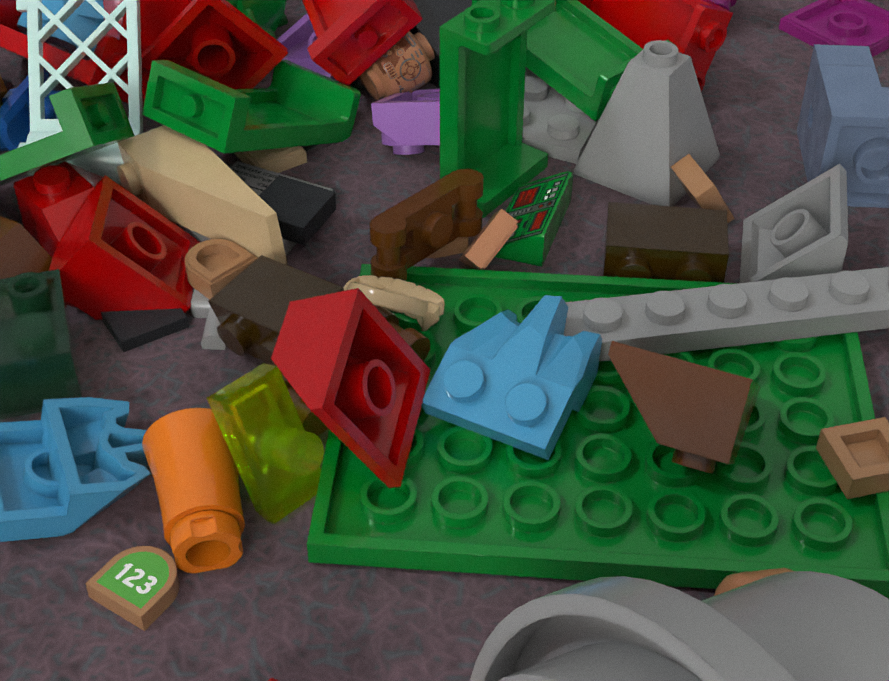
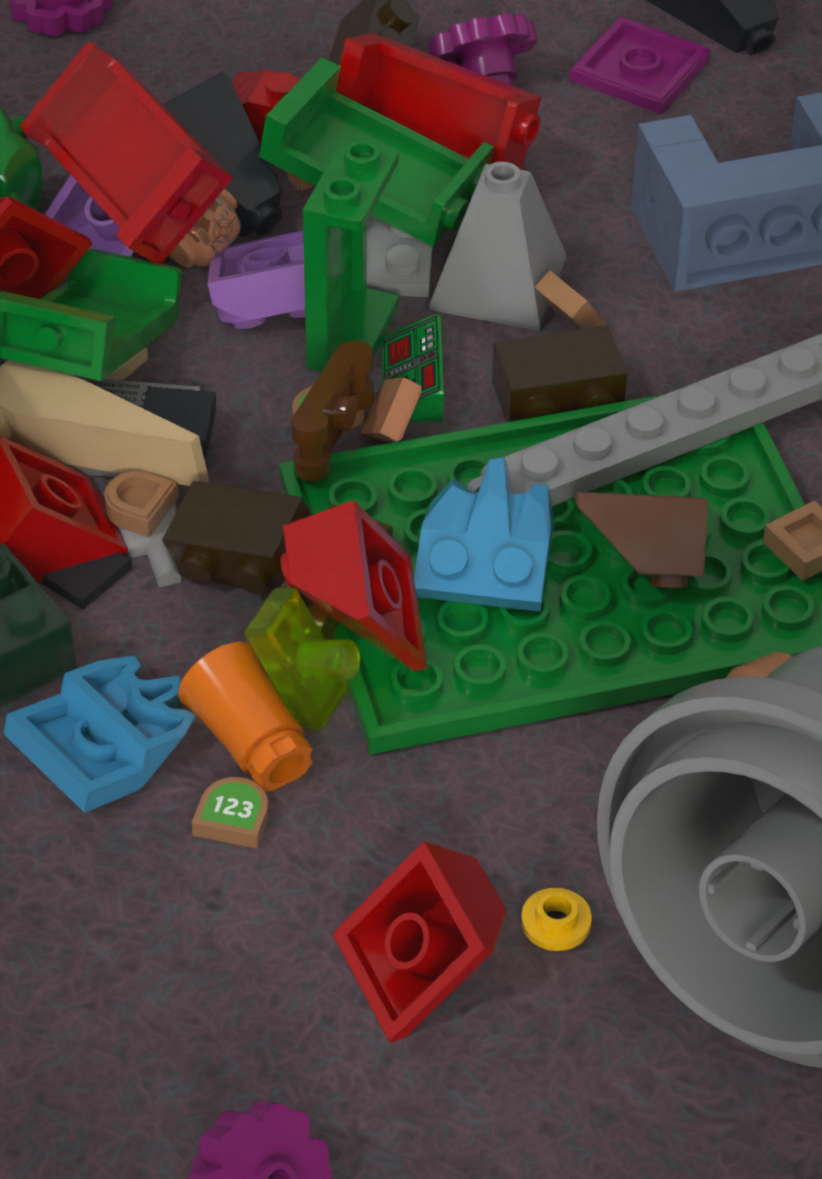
camera: 20 degrees left, 5 degrees up
(401, 298) = (340, 488): tan piece -> none
(799, 232) = (678, 333): light grey slope -> none

